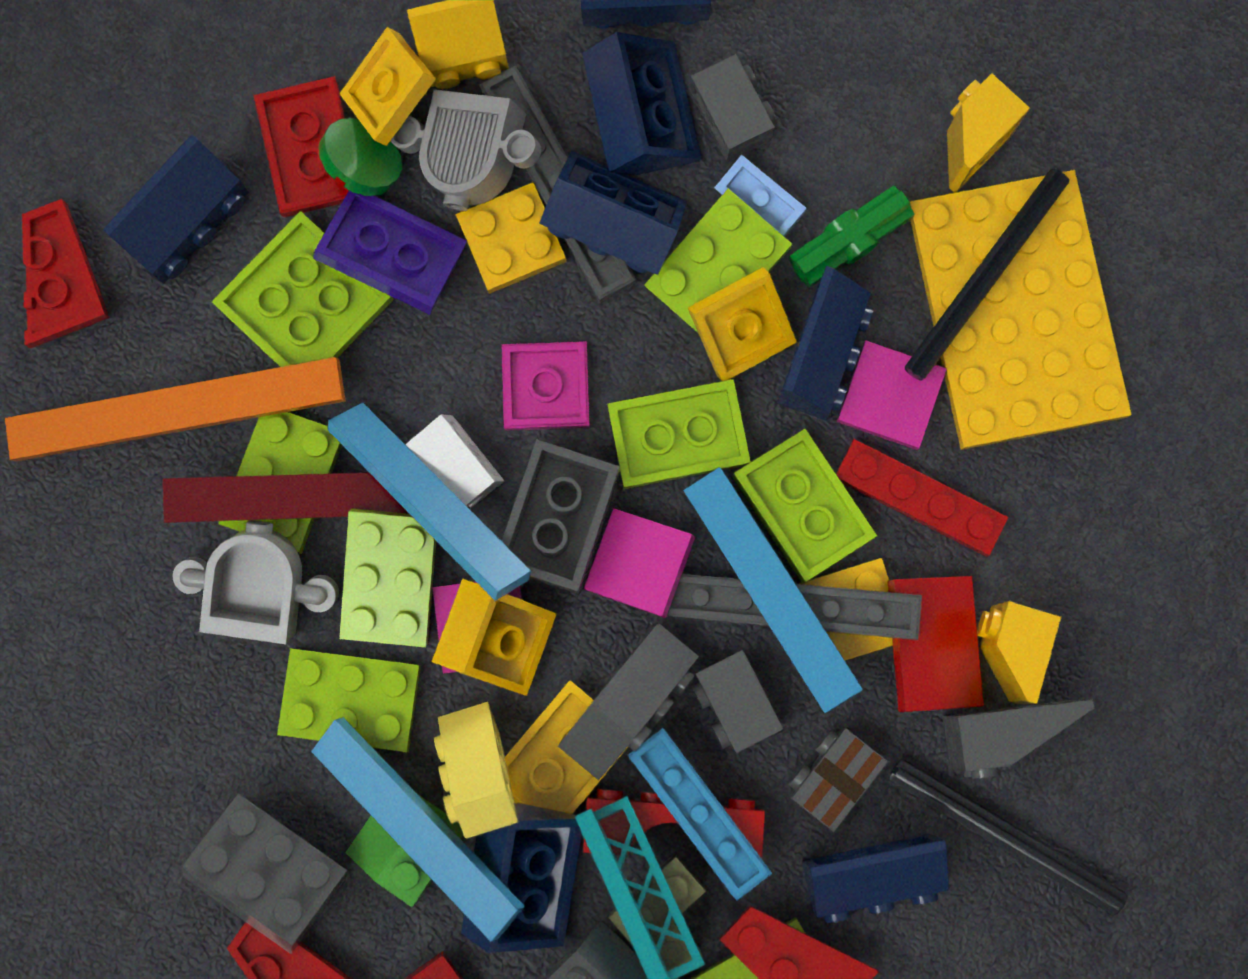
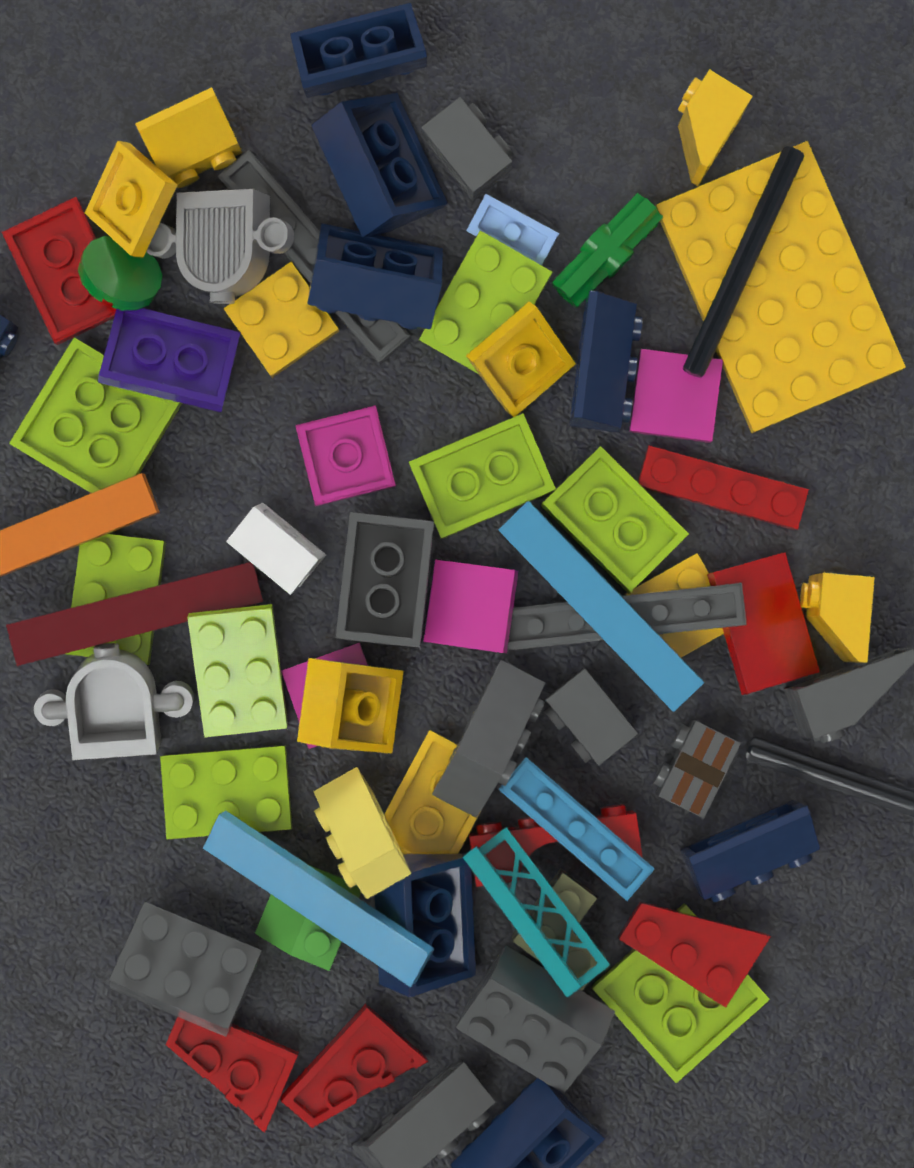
camera: 15 degrees left, 5 degrees up
(429, 501) = (260, 591): dark azure tile -> none

